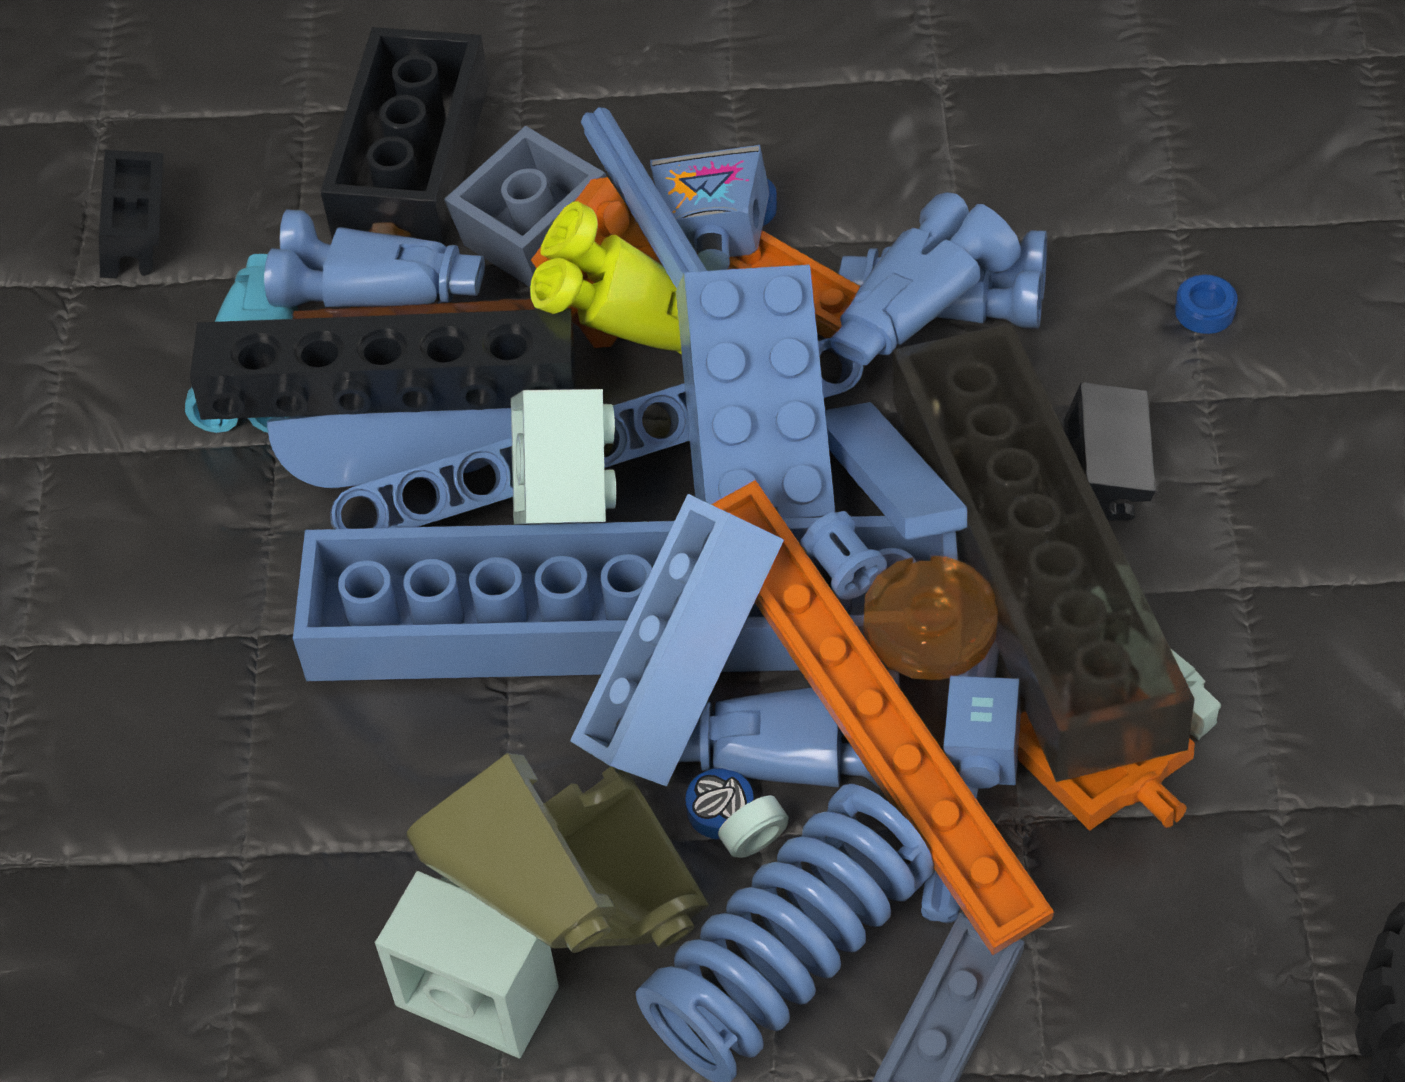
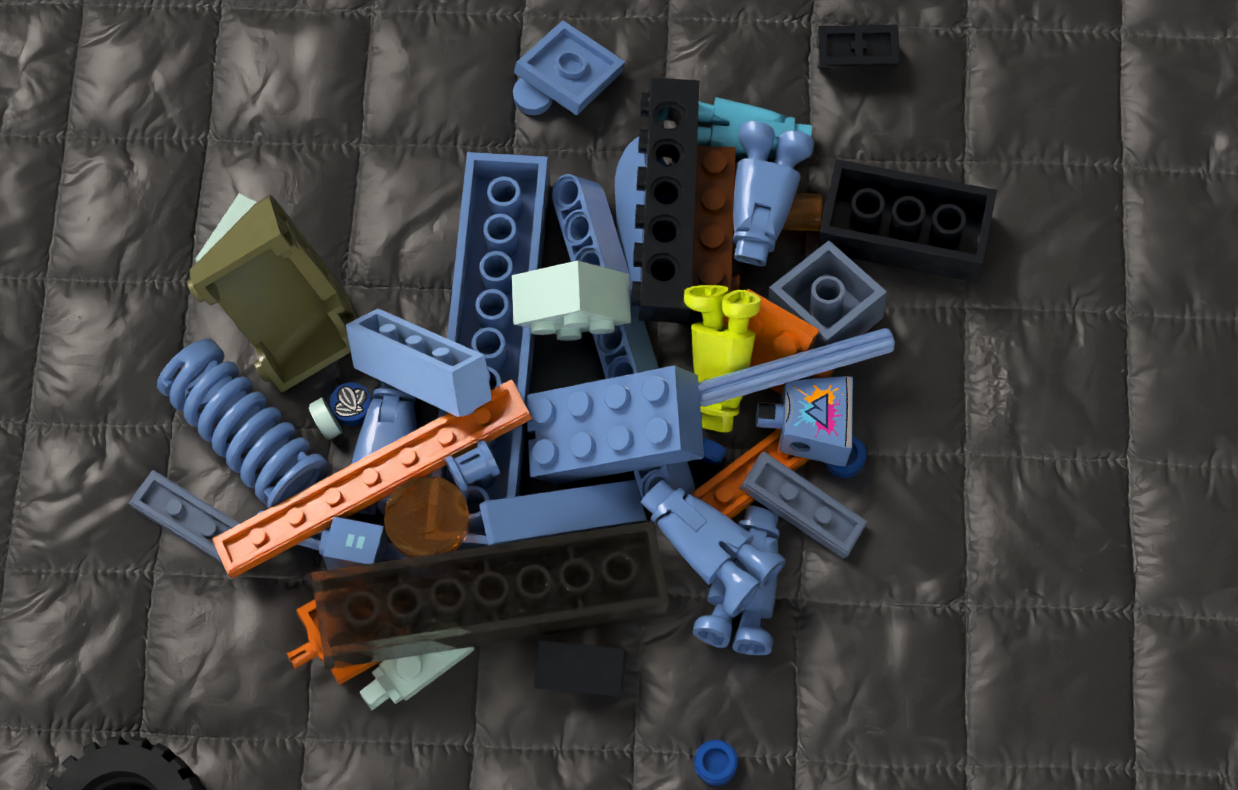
camera: 95 degrees right, 15 degrees up
(133, 549) = (569, 67): none -> medium blue plate
(170, 609) = (530, 99): none -> medium blue tile
(832, 221) = (803, 505): none -> sand blue tile

